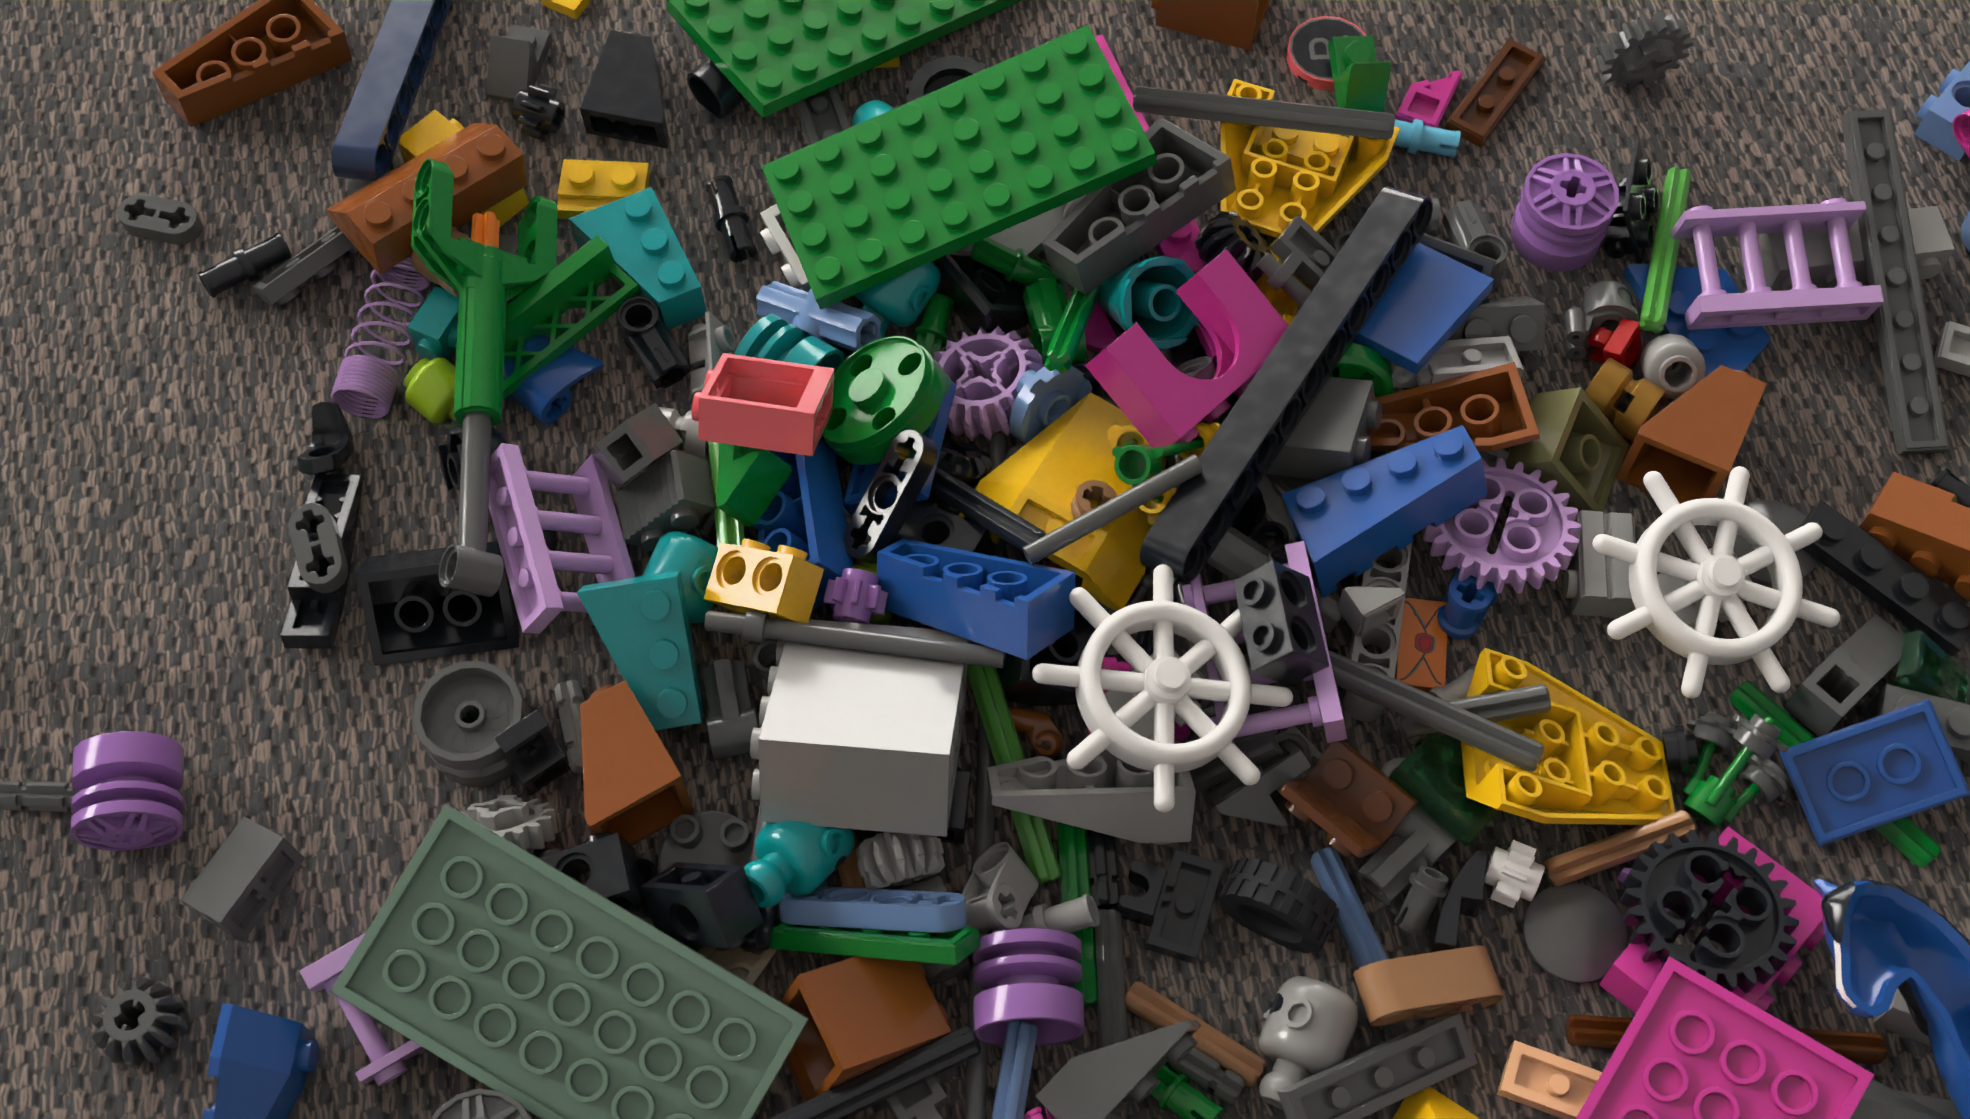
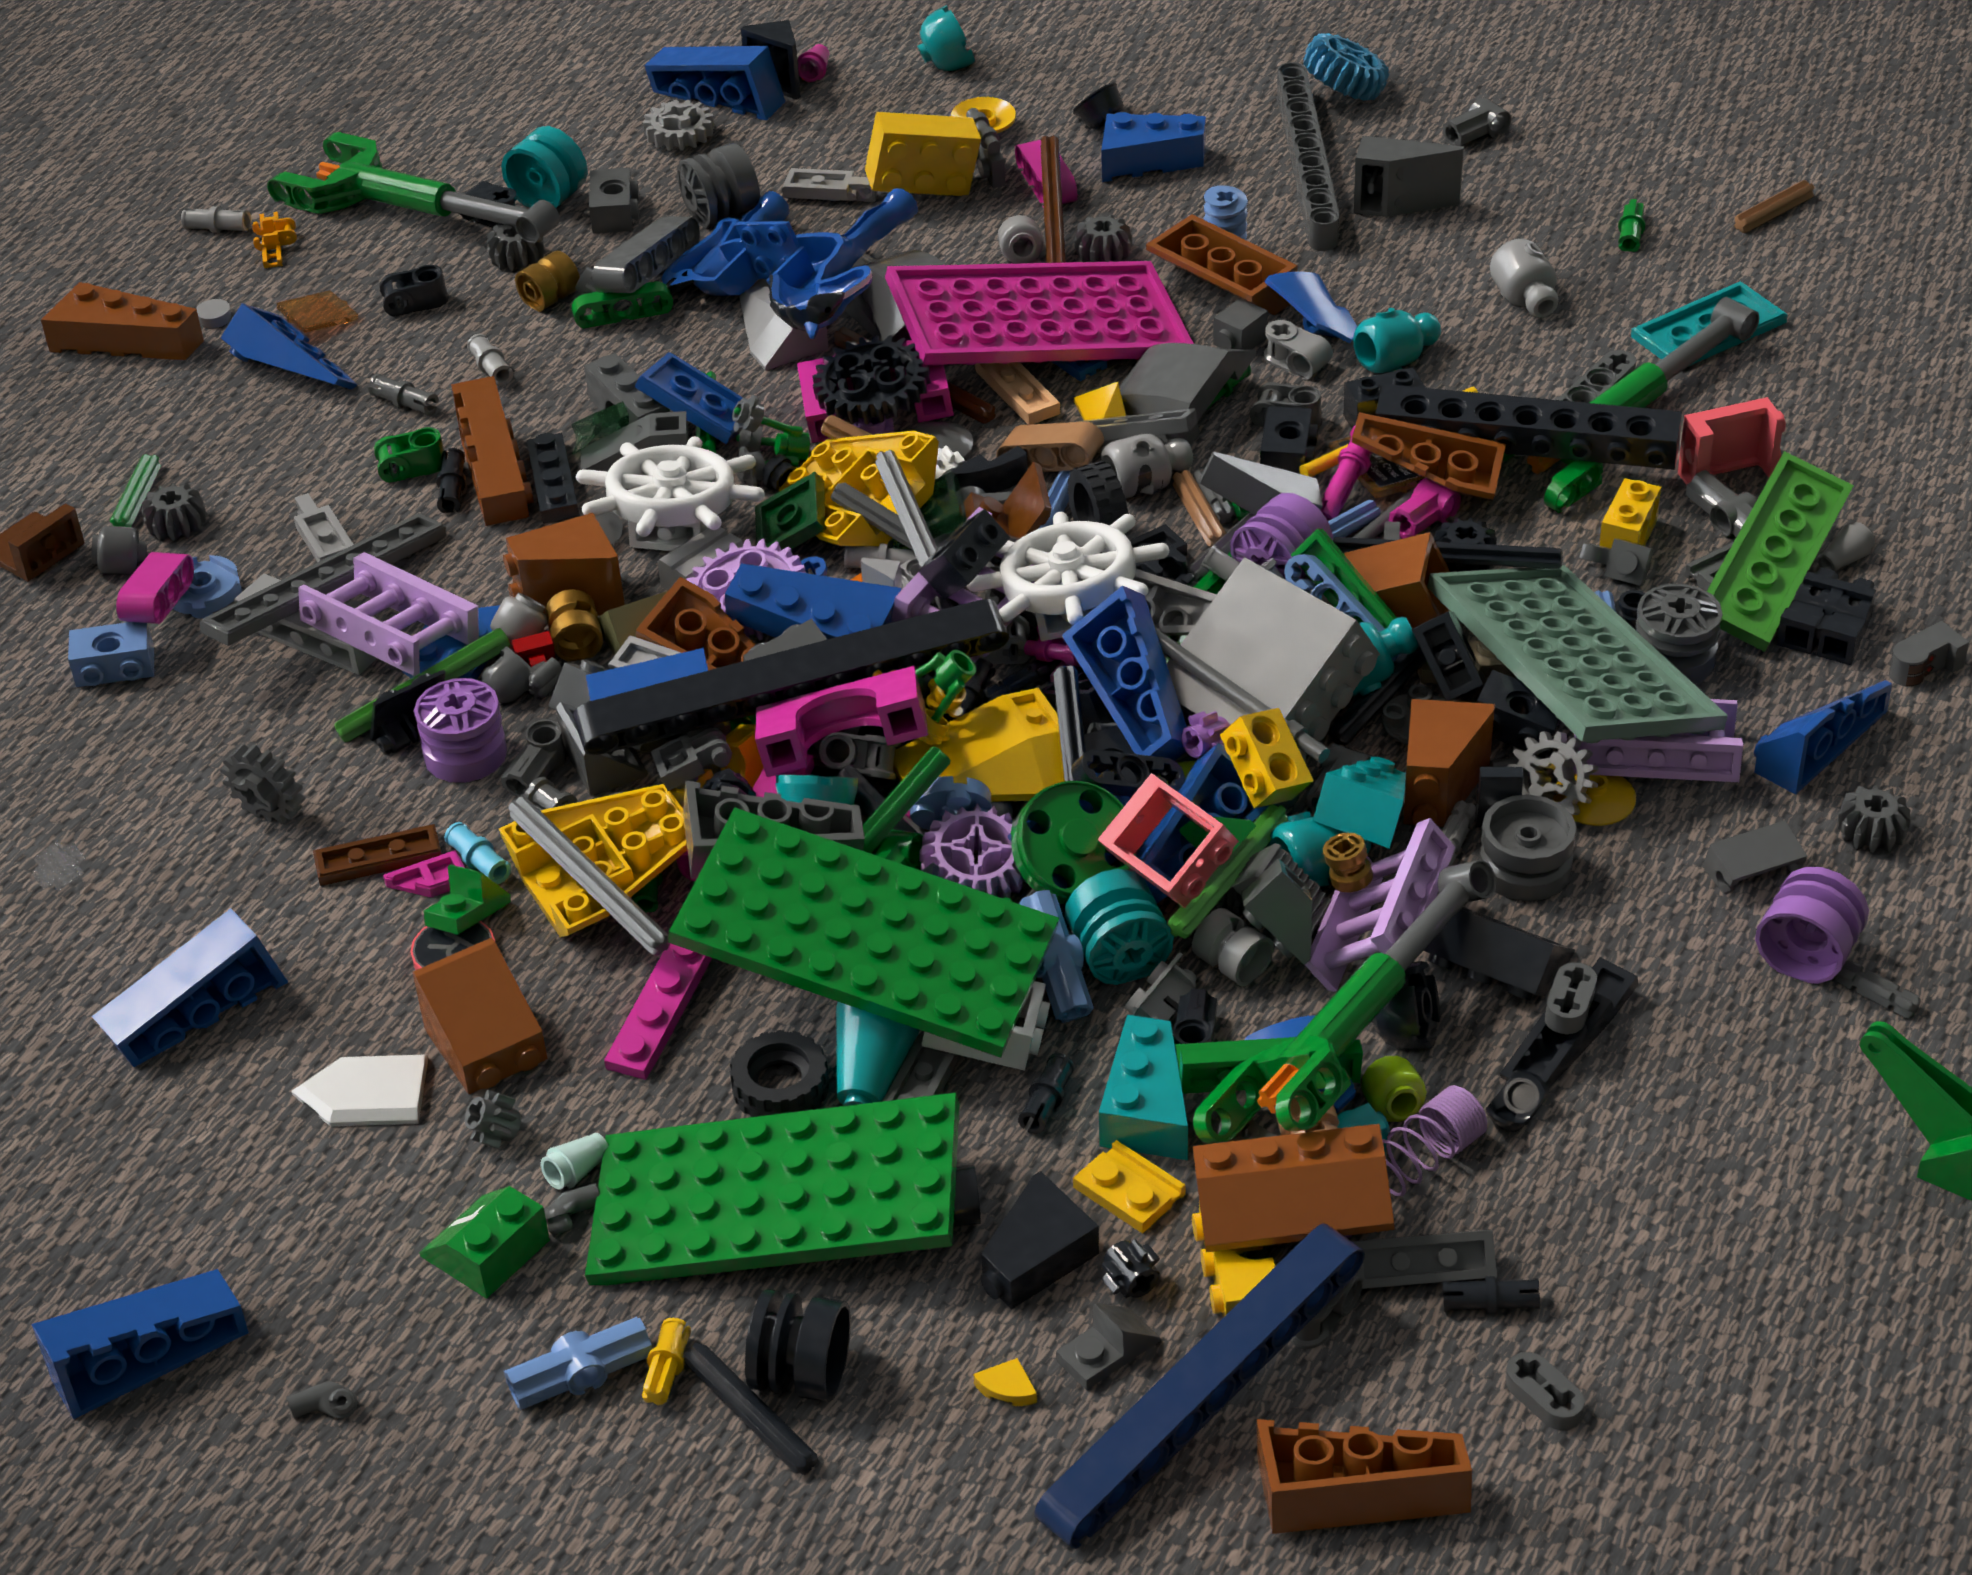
camera: 140 degrees left, 20 degrees down
(618, 553) = (1348, 862): none -> pearl gold wheel
(1092, 490) = (995, 704): medium nougat bush -> none
(1112, 509) = (1001, 651): dark grey bar -> none
(1421, 900) = (1000, 479): dark grey pin -> none
(1582, 674) = (792, 513): none -> dark green plate

